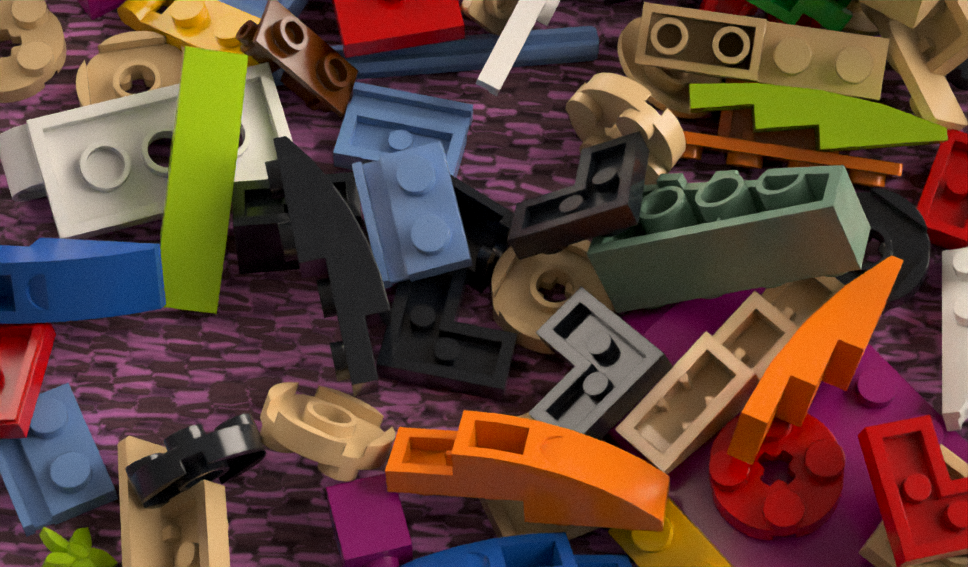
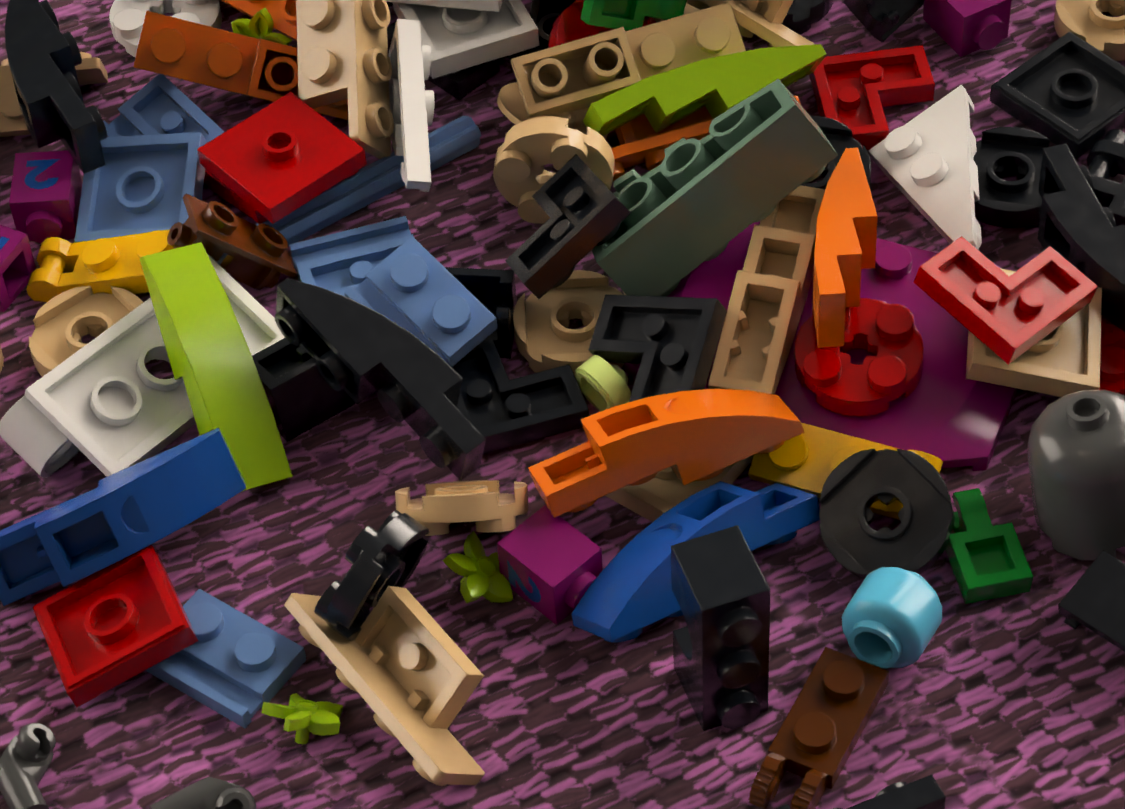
camera: 25 degrees left, 10 degrees down
(307, 502) = (479, 573): none -> lime plant
(536, 369) = (602, 383): none -> yellowish green tile

